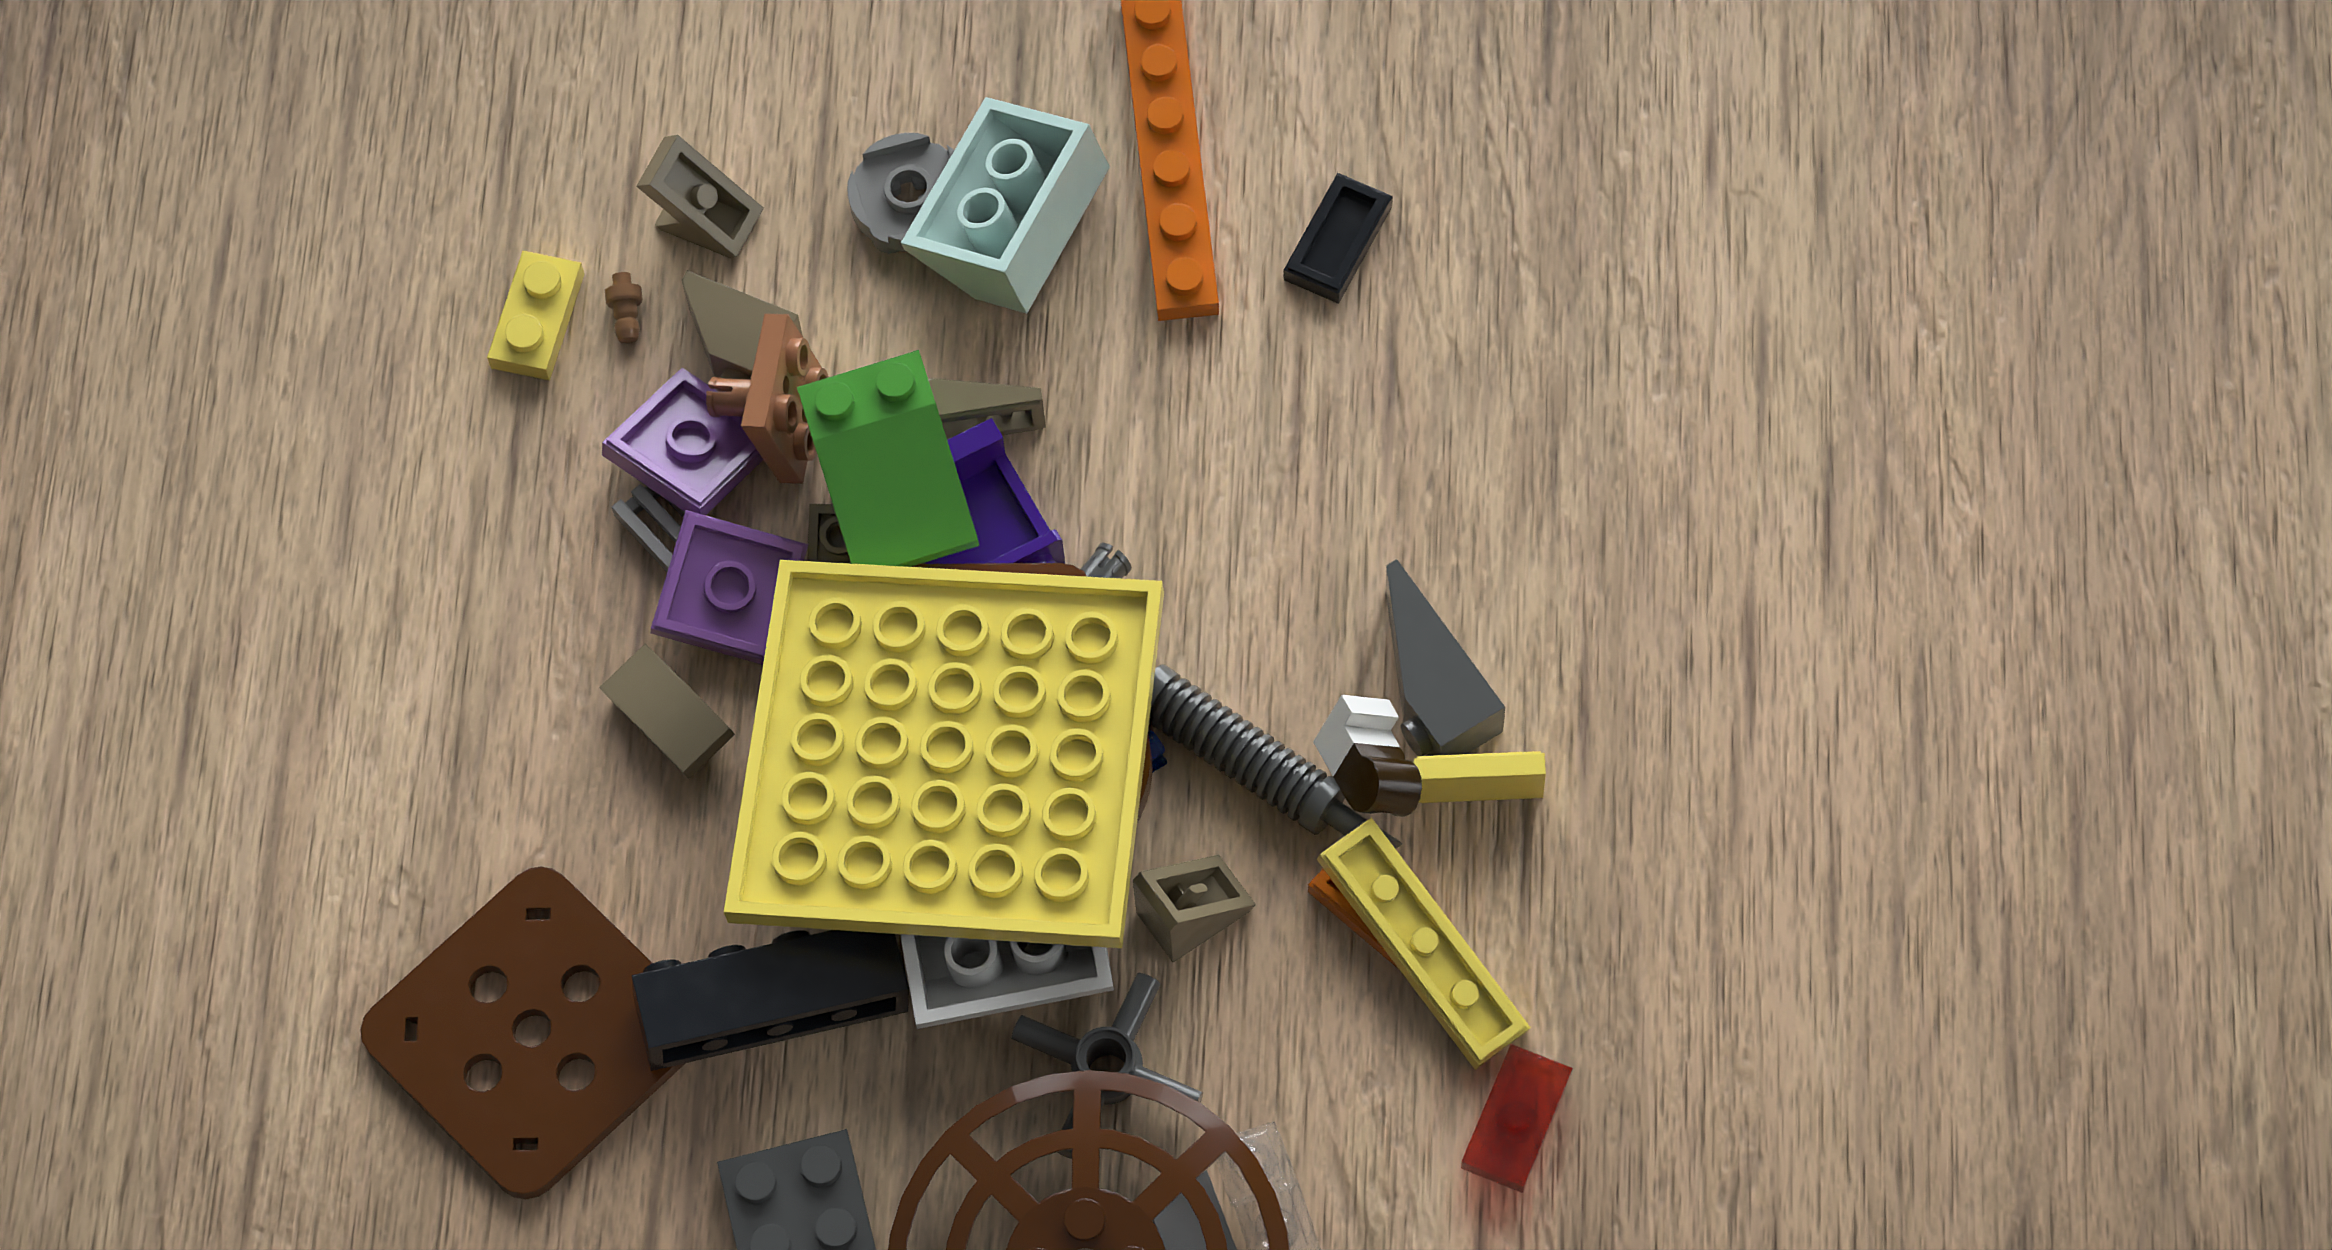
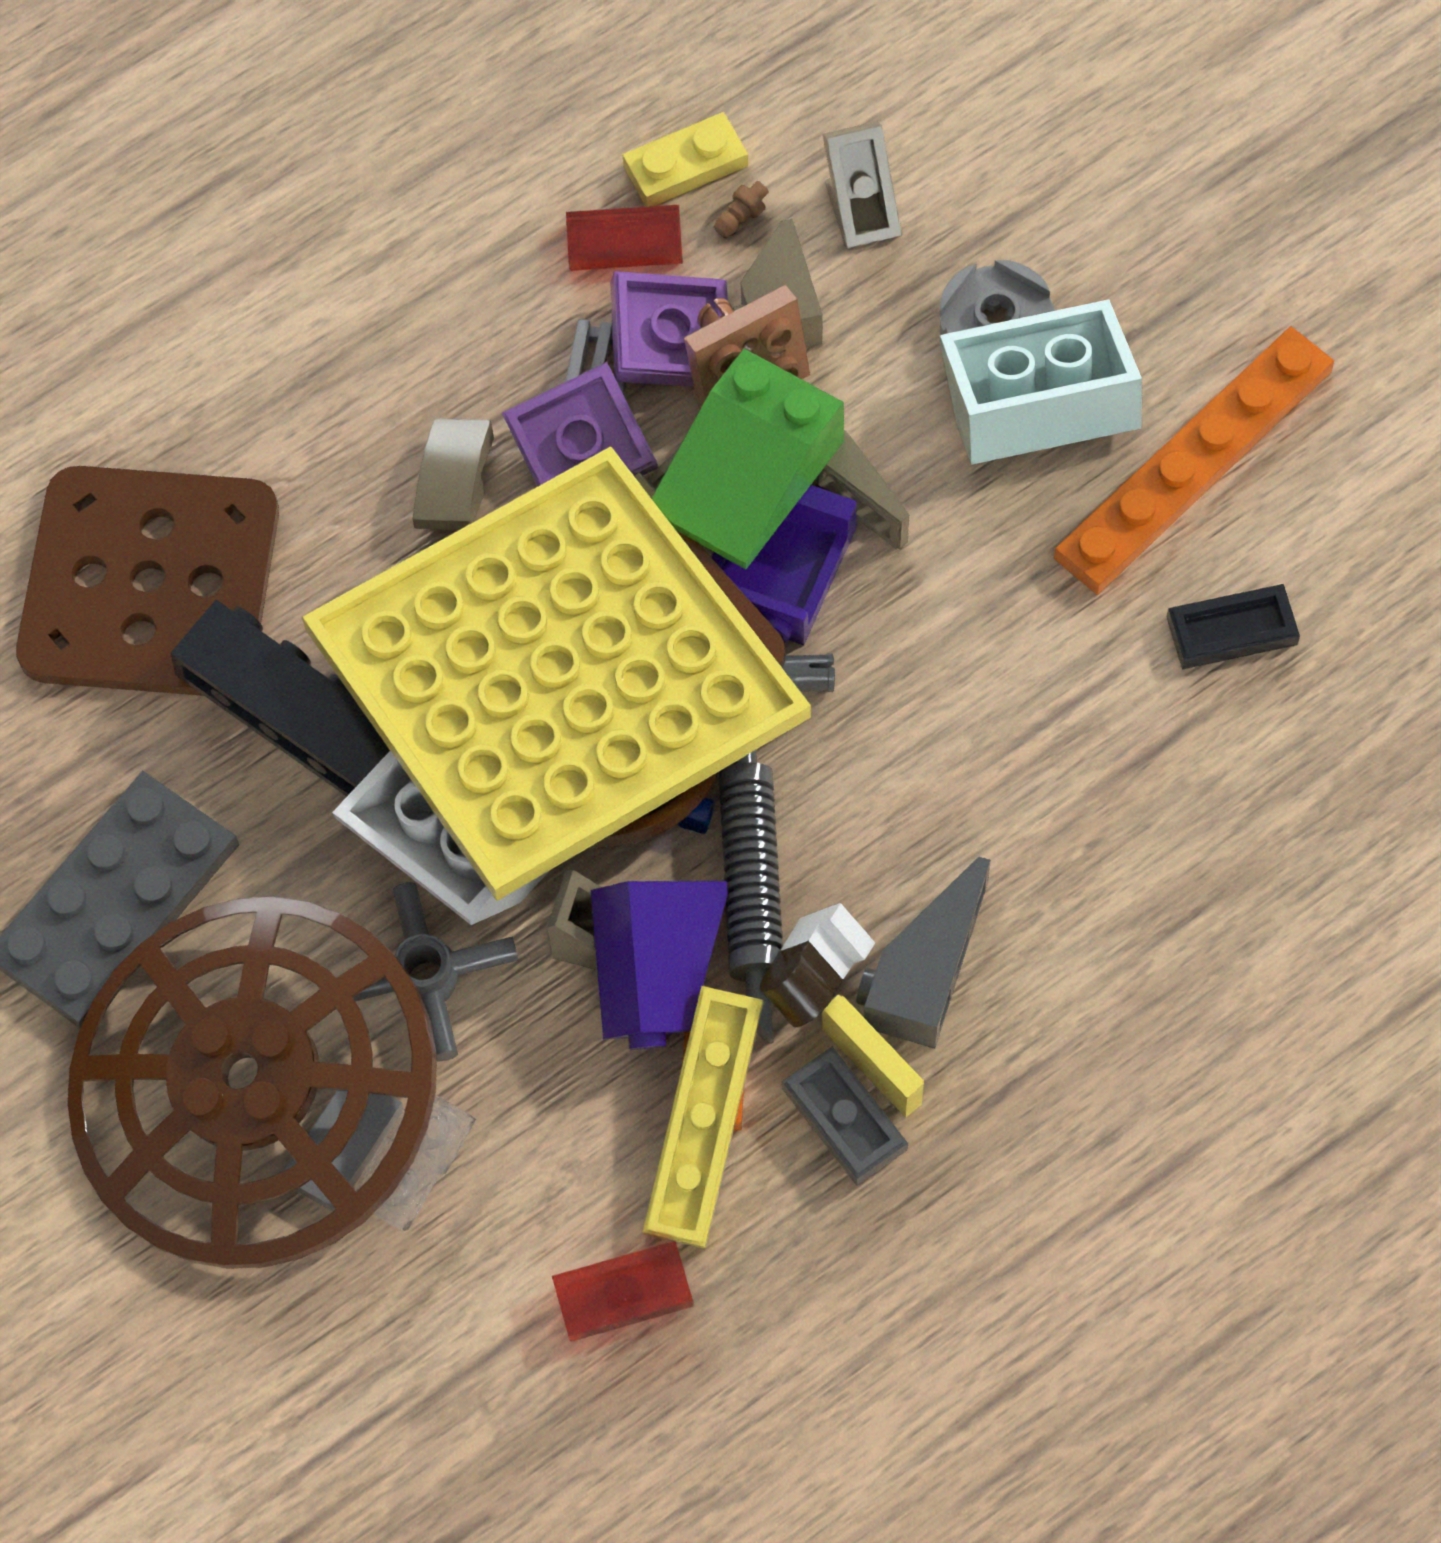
camera: 50 degrees right, 0 degrees up
(564, 416) = (624, 237): none -> clear red tile
(1257, 875) = (653, 955): none -> dark purple slope
(1509, 838) = (844, 1115): none -> dark grey plate

